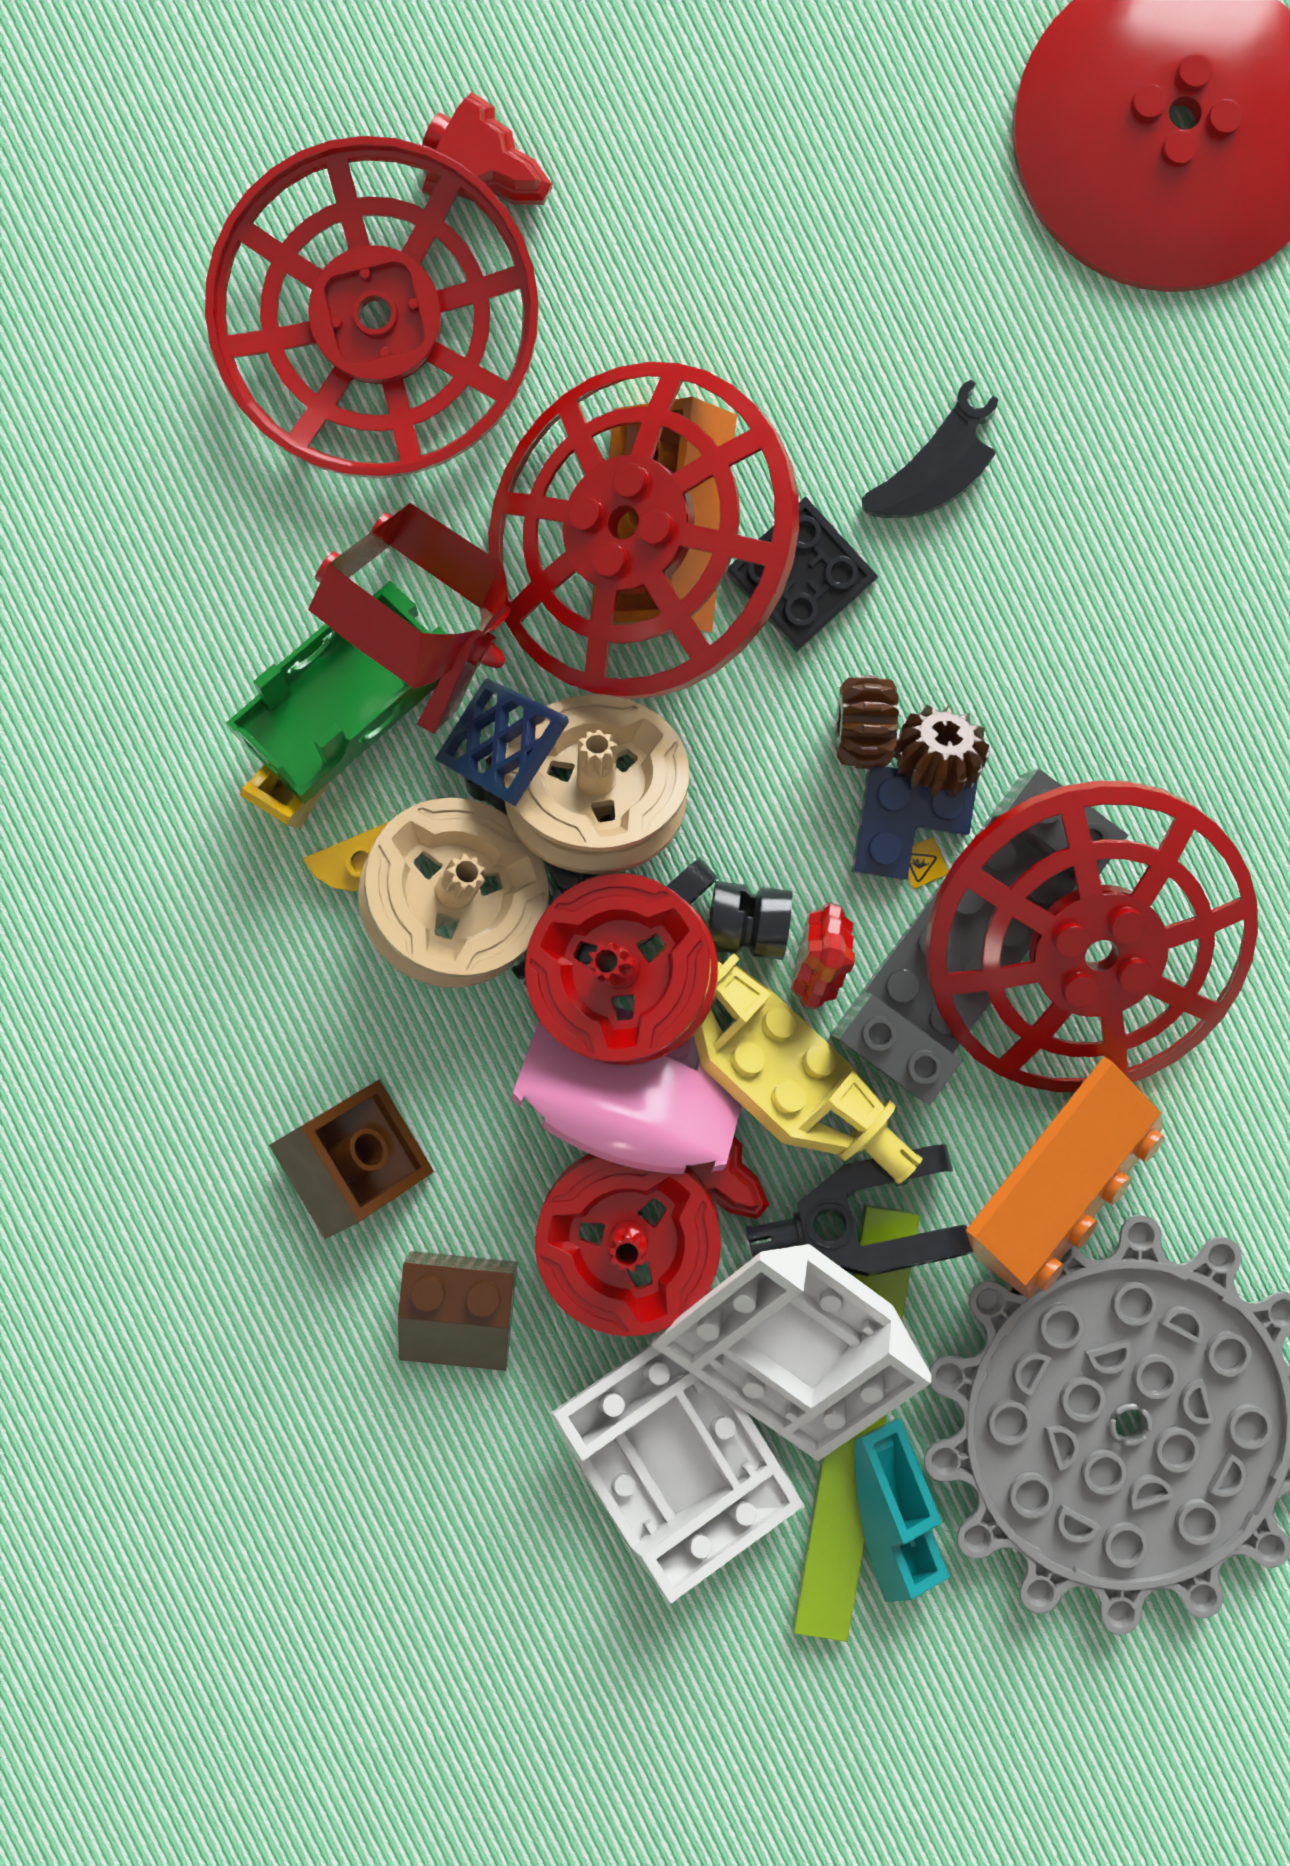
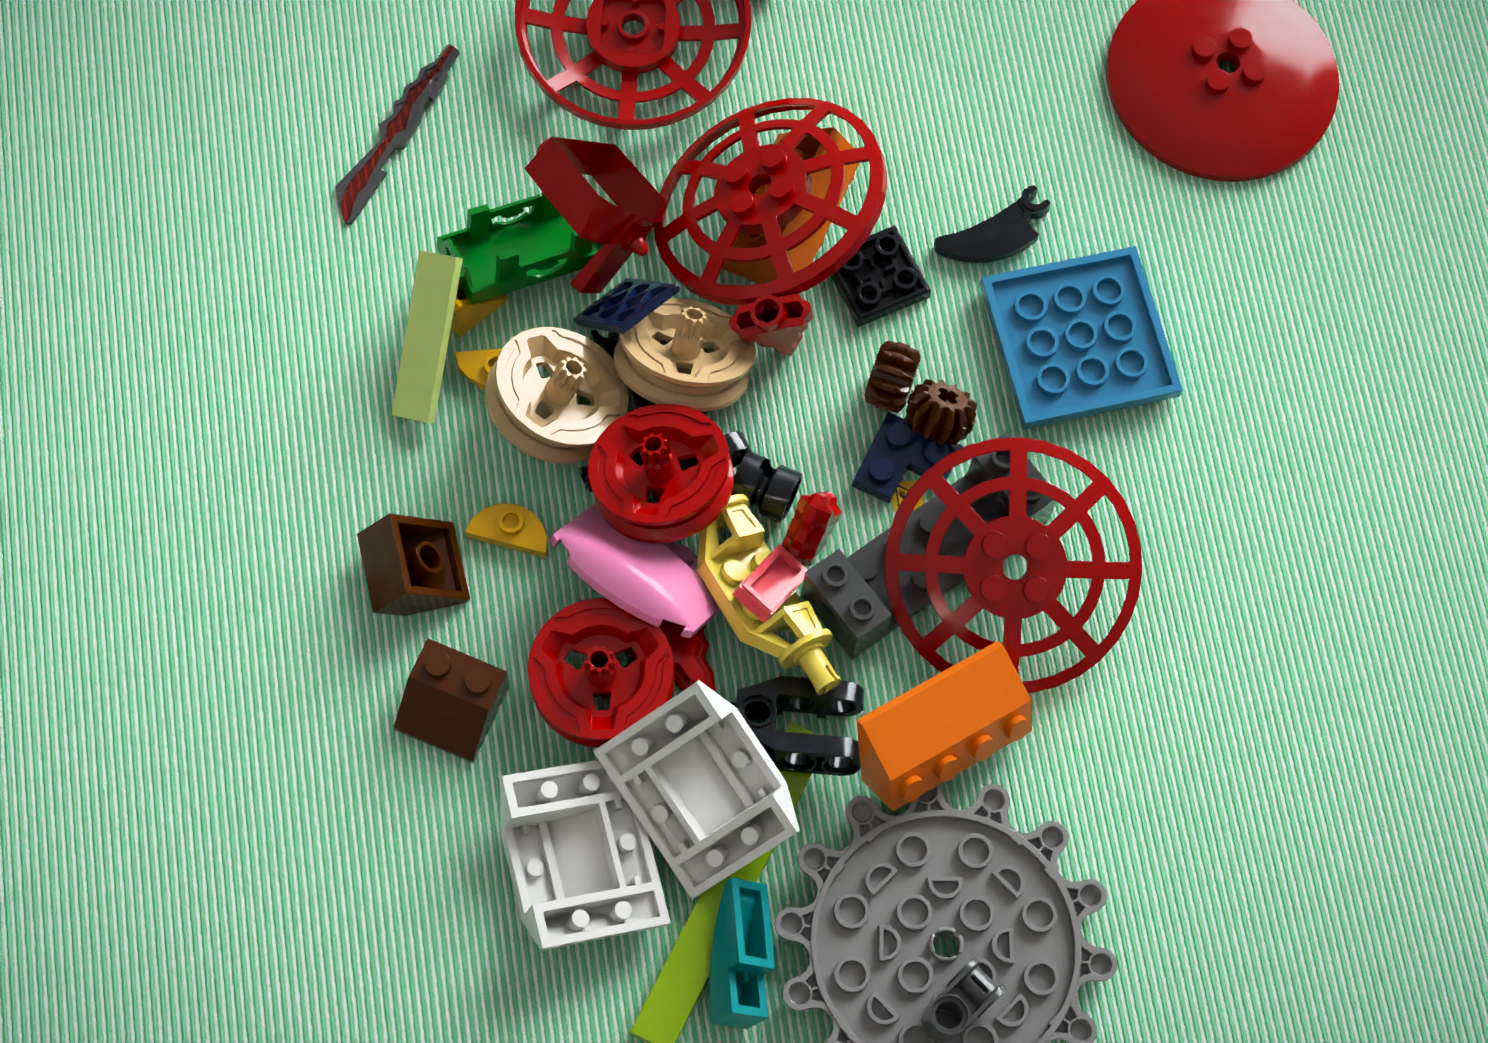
camera: 10 degrees right, 20 degrees down
(119, 566) = (396, 132): none -> dark grey sword
(261, 862) = (426, 336): none -> yellowish green tile
(452, 1065) = (509, 527): none -> yellow plate
(695, 710) = (773, 321): none -> red rock
(799, 1058) = (771, 583): none -> coral tile
(1085, 580) = (1080, 337): none -> dark azure plate
(1173, 1496) = (966, 997): none -> dark grey piece

